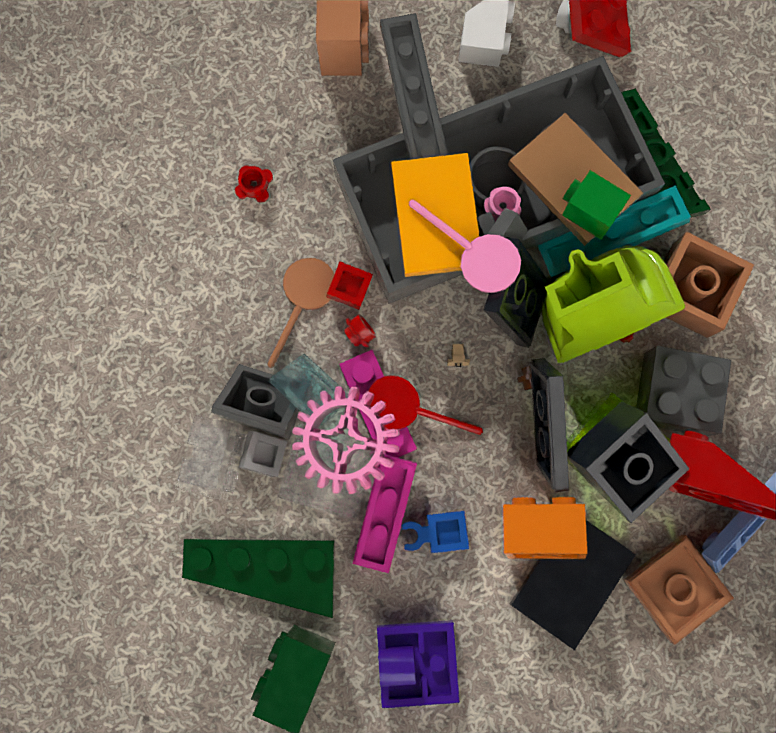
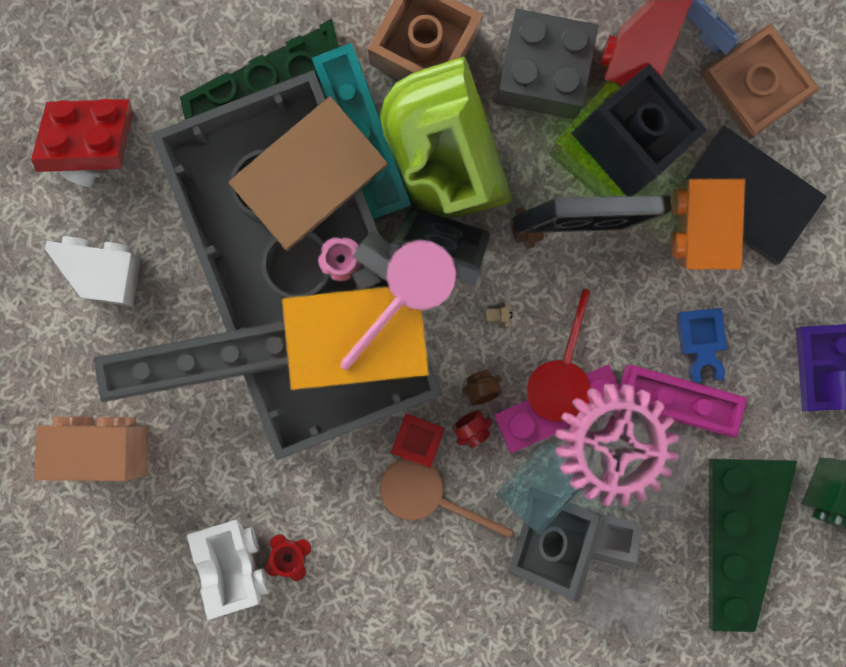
camera: 90 degrees left, 5 degrees up
(246, 134) = (228, 568): none -> white cylinder
(395, 339) = (482, 387): none -> reddish brown plate
(594, 203) = (351, 153): green brick -> none

